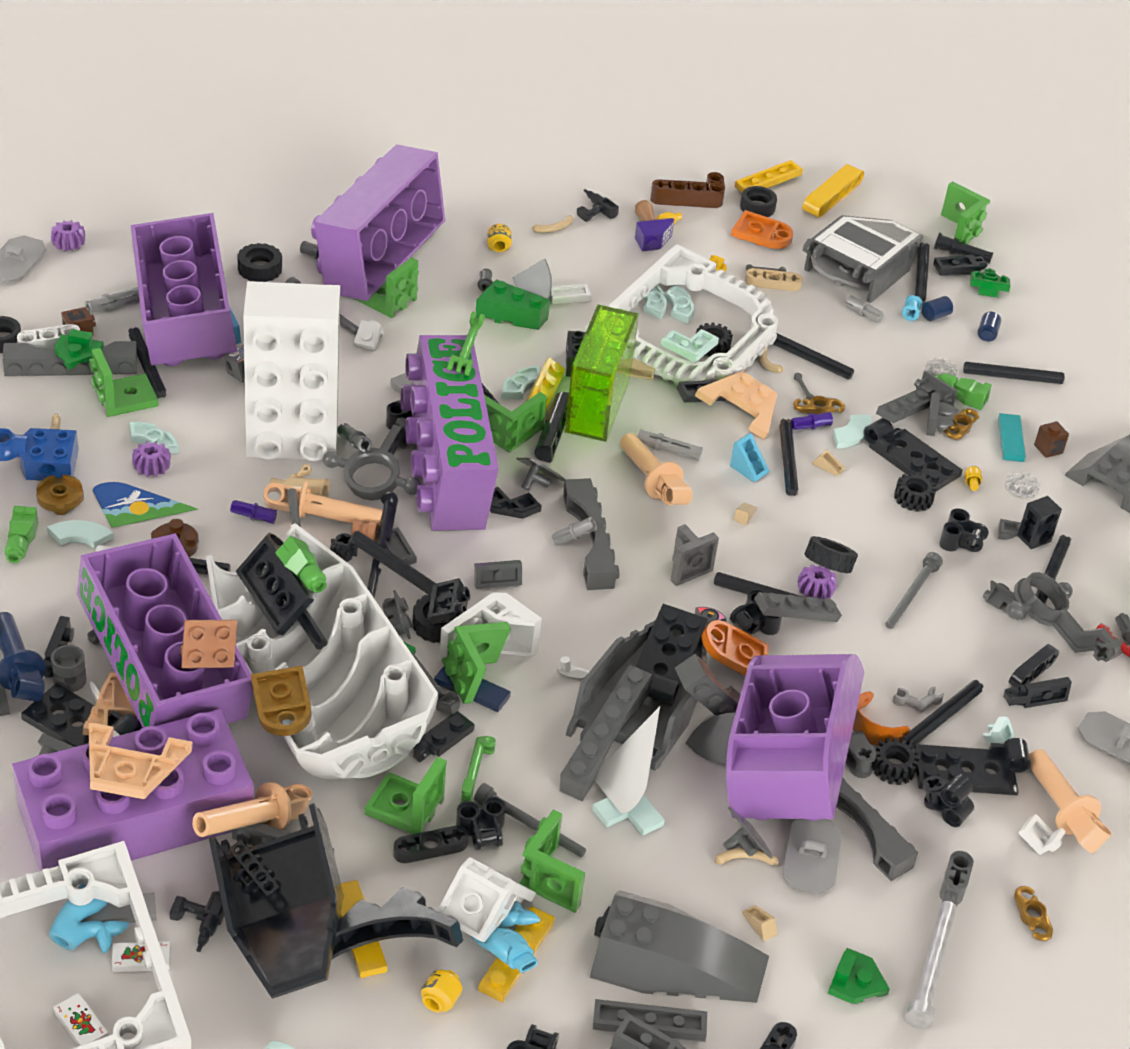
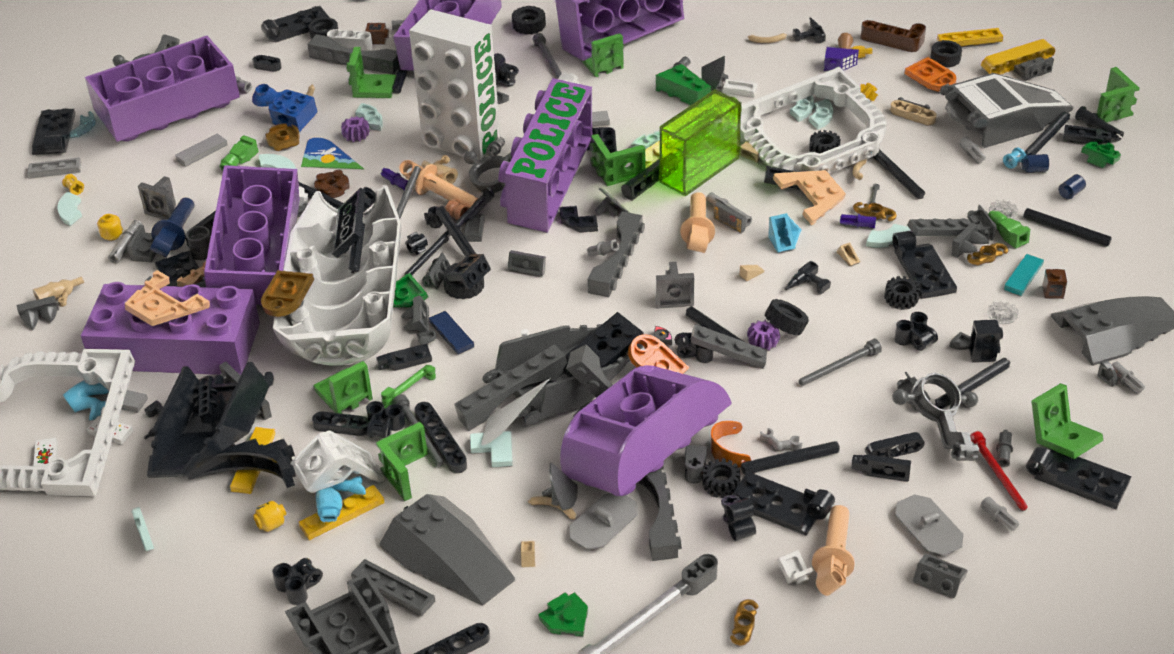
camera: 35 degrees right, 0 degrees up
(76, 347) = (357, 41): green plate -> none
(208, 643) = (257, 241): nougat hinge -> none
(271, 806) = (232, 361): light nougat piece -> none
(301, 561) = (366, 209): bright green piece -> none
(462, 361) = (568, 104): bright green hinge -> none
(467, 660) = (453, 304): bright green bracket -> none
(498, 608) = (486, 289): white bracket -> none
(499, 237) = (715, 38): yellow head -> none
(568, 828) = (441, 444): none -> black beam
(680, 454) = (729, 217): none -> dark grey tile
(690, 348) = (792, 143): light aqua tile -> none
(788, 455) = (819, 240): black axle -> none
(805, 500) = (808, 273): none -> black piece
(855, 199) = (1034, 68): none -> dark grey bracket
(973, 477) = (962, 295): yellow cylinder -> none
(999, 731) = (825, 482): light aqua tile -> none

